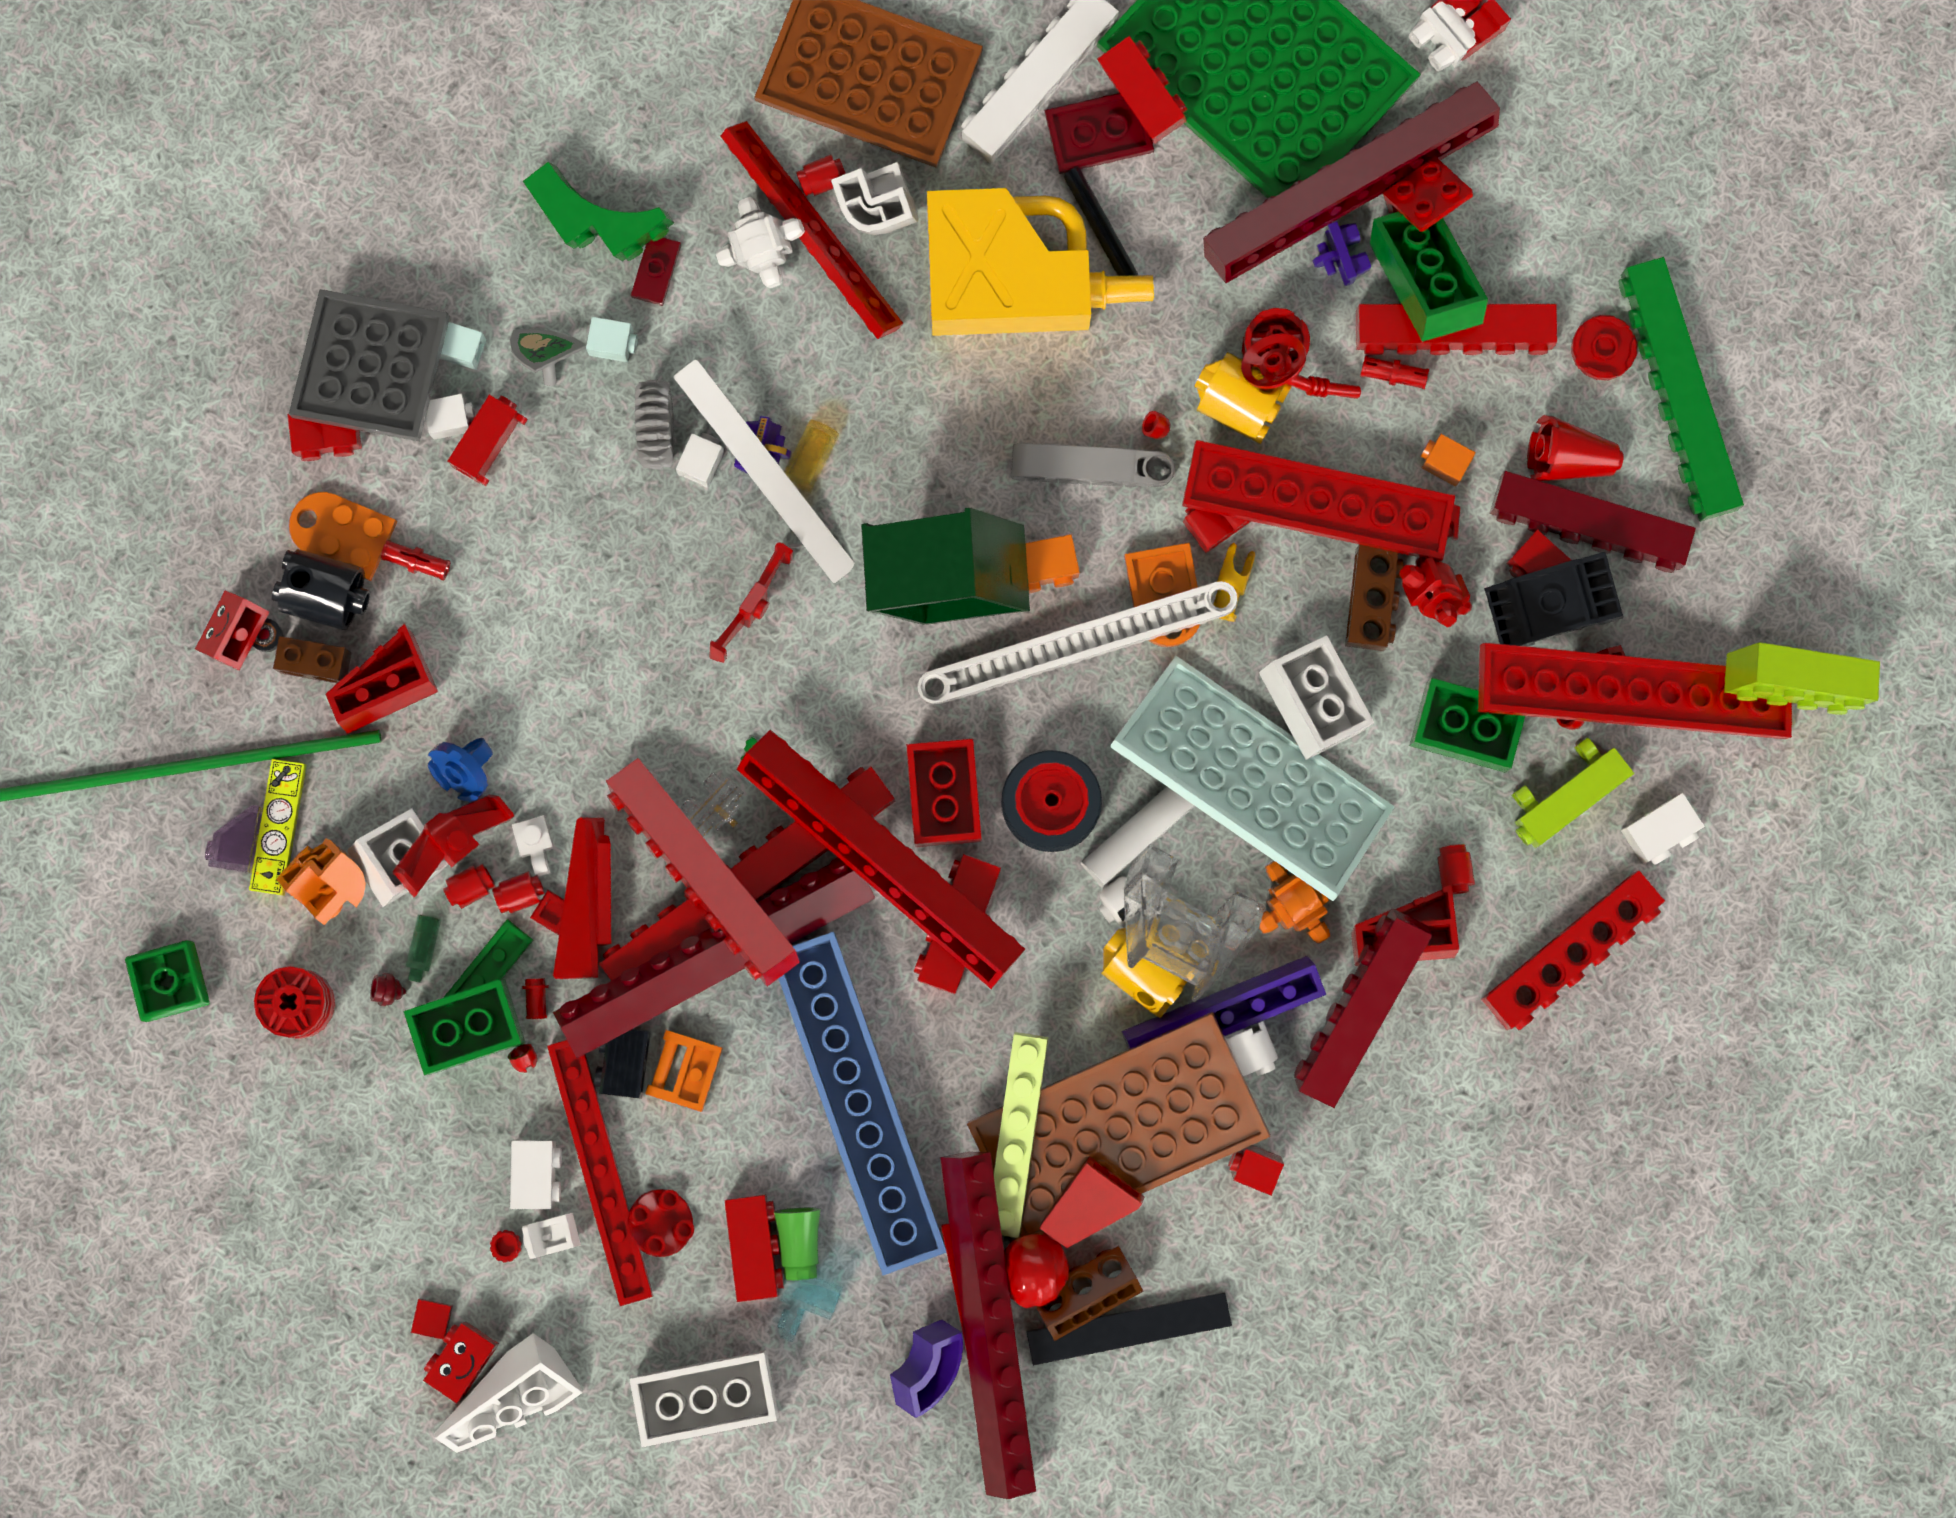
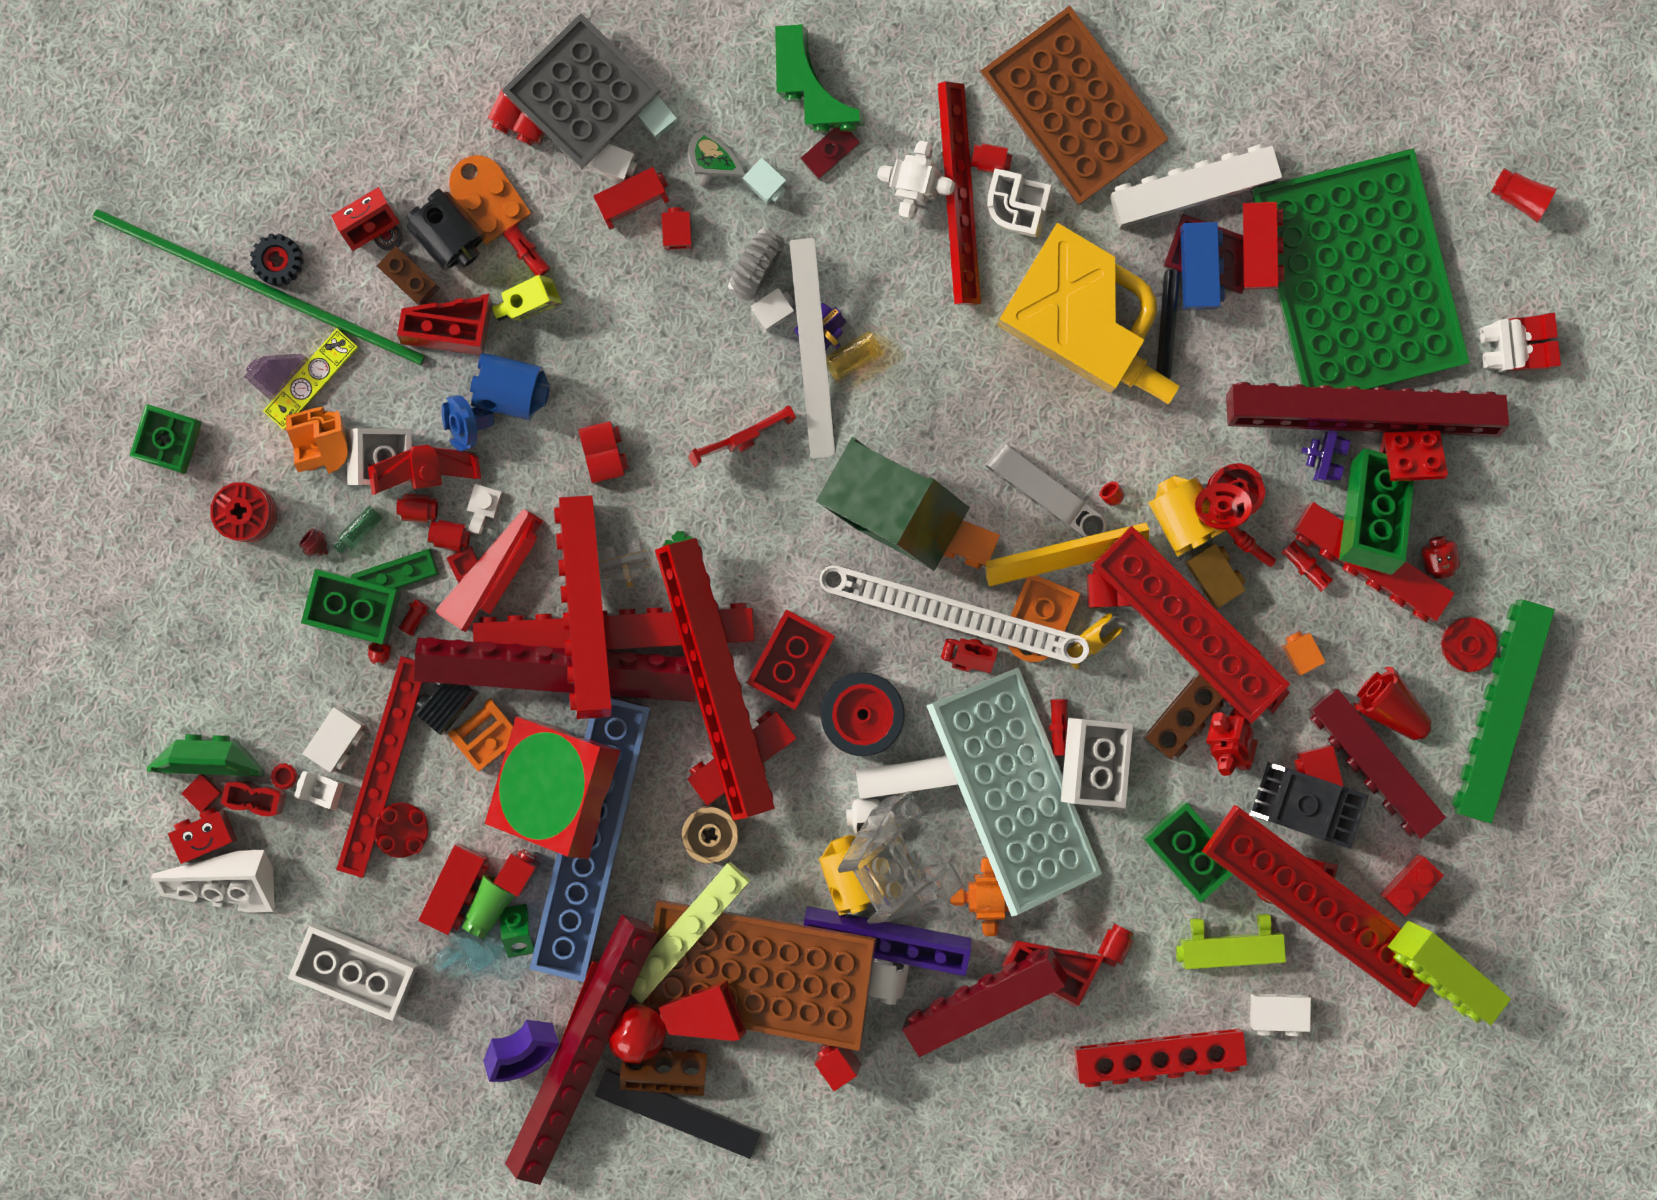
camera: 35 degrees right, 5 degrees up
(161, 745) = (265, 268): none -> black bush
(413, 1278) = (206, 757): none -> green wedge
(456, 596) = (537, 294): none -> neon yellow torso
(481, 1290) = (260, 801): none -> red brick
(484, 703) = (509, 387): none -> blue cylinder
(552, 442) = (676, 229): none -> red brick
(620, 709) = (602, 452): none -> red brick
(786, 1074) = (552, 787): none -> tile
(806, 1185) = (517, 872): none -> red brick
(842, 1247) = (515, 929): none -> green bracket
(962, 1008) = (716, 849): none -> tan brick
(1096, 146) = (1201, 266): none -> blue brick
(1119, 674) = (969, 655): none -> red piece
(1138, 523) = (1054, 556): none -> yellow tile
(1254, 687) = (1059, 725): none -> red pin
(1311, 438) = (1215, 575): none -> pearl gold brick
(1519, 279) = (1440, 557): none -> red head
(1706, 617) = (1411, 885): none -> red brick

